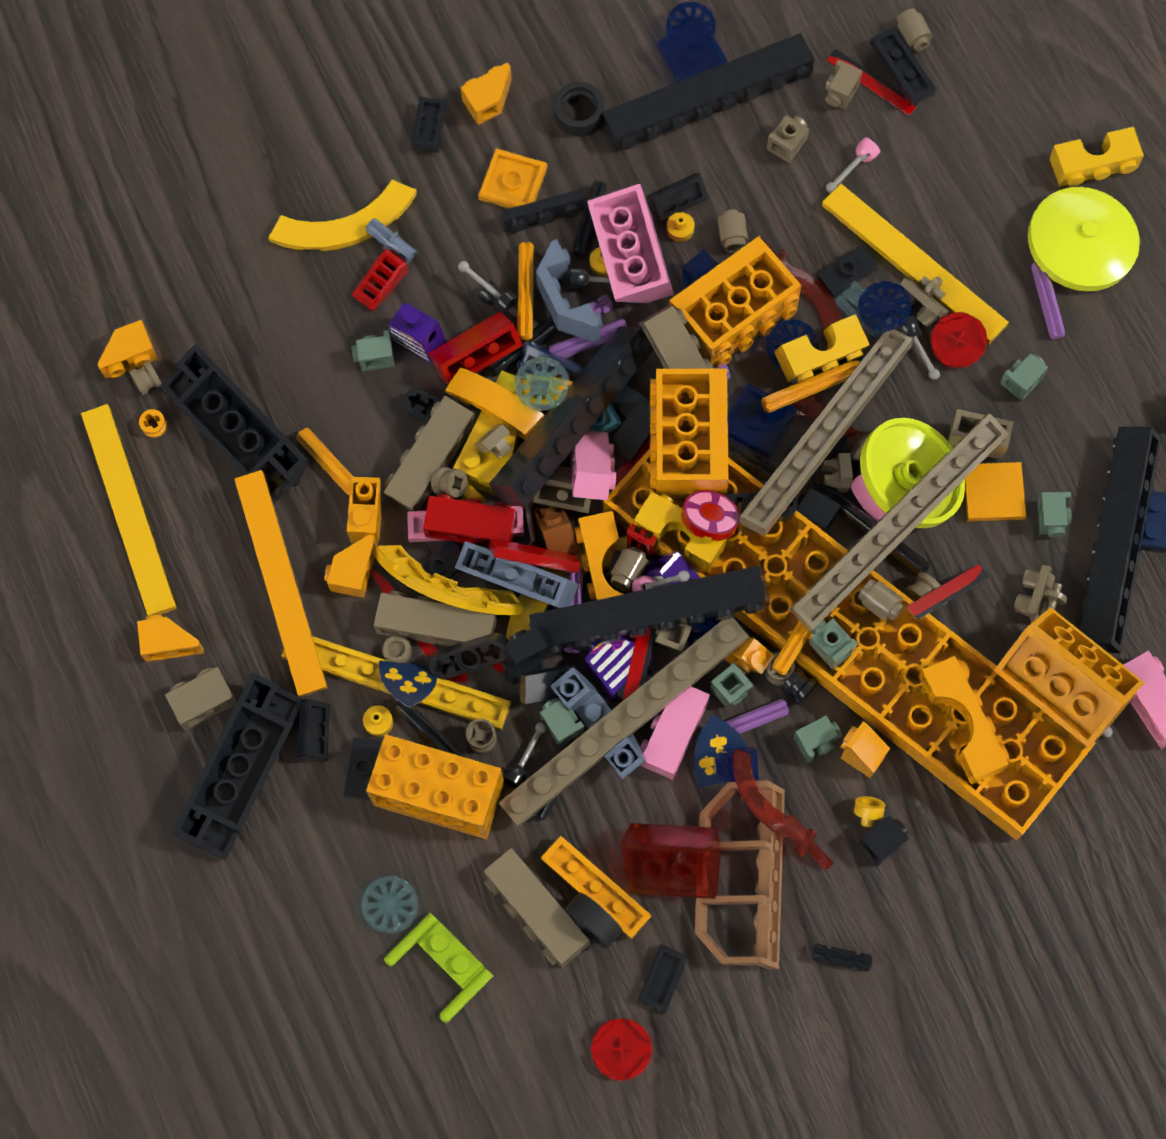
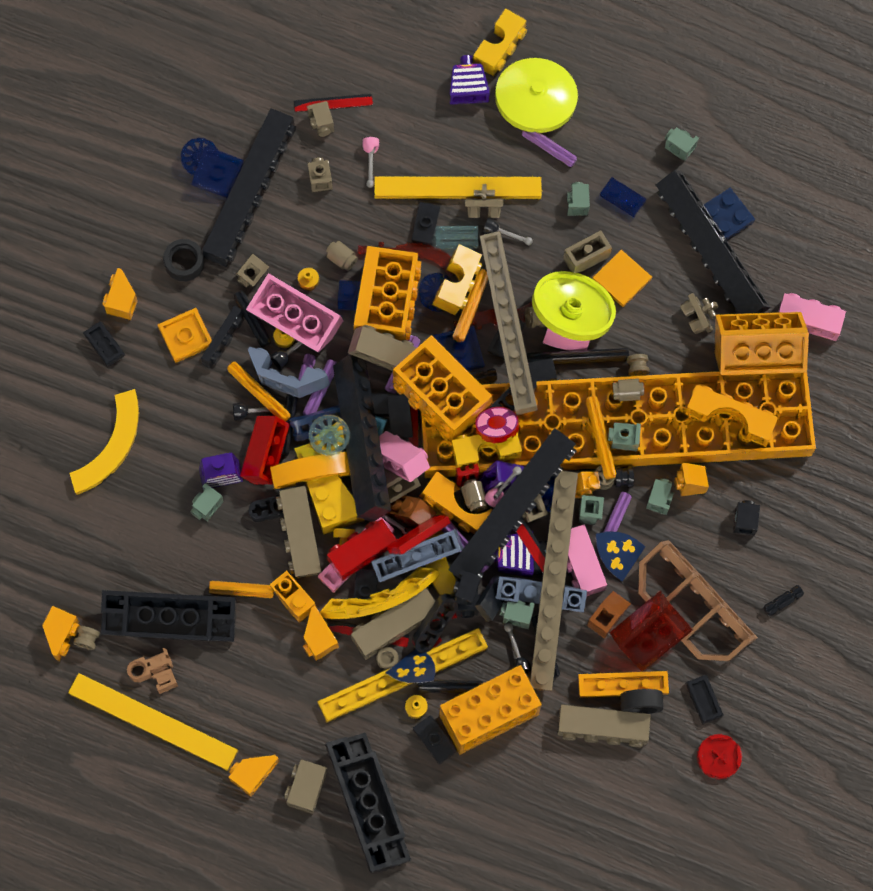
camera: 50 degrees left, 0 degrees up
(155, 415) = (120, 665): light orange bush -> none
(182, 463) = (159, 667): none -> medium nougat piece
(280, 583) = (287, 680): light orange tile -> none
(313, 730) = (387, 744): black plate -> none
(390, 240) = (151, 431): sand blue axle -> none
(390, 905) = (523, 798): clear light blue wheel -> none
(395, 277) = (167, 441): red slope -> none
(449, 481) = (328, 537): dark tan wheel -> none
(449, 955) = (582, 795): lime plate -> none
(478, 731) = (485, 658): dark tan wheel -> none
(494, 441) = (334, 490): dark tan tile -> none
(502, 299) = (251, 408): hinge -> none
(622, 166) = (257, 266): none -> dark tan brick
(649, 804) = (608, 614): none -> dark orange slope
(678, 196) = (291, 262): black plate -> none
(724, 763) = (634, 548): clear blue brick -> none
(771, 816) = (681, 559): clear red sword -> none
(841, 471) = (534, 339): dark tan tile -> none
(869, 809) = (723, 509): yellow tile -> none
(884, 306) = (468, 226): clear blue wheel -> none
(898, 522) = (597, 339): dark tan plate -> none
(903, 66) = (343, 79): black plate -> none
(914, 30) = (330, 52): dark tan brick -> none
(947, 591) = (653, 354): red sticker -> none
(958, 340) = (524, 210): red tile -> none
(1023, 170) = (468, 83): none -> dark purple torso
(1053, 513) = (665, 262): sand green brick -> none
(1075, 413) = (623, 197): none -> clear blue plate

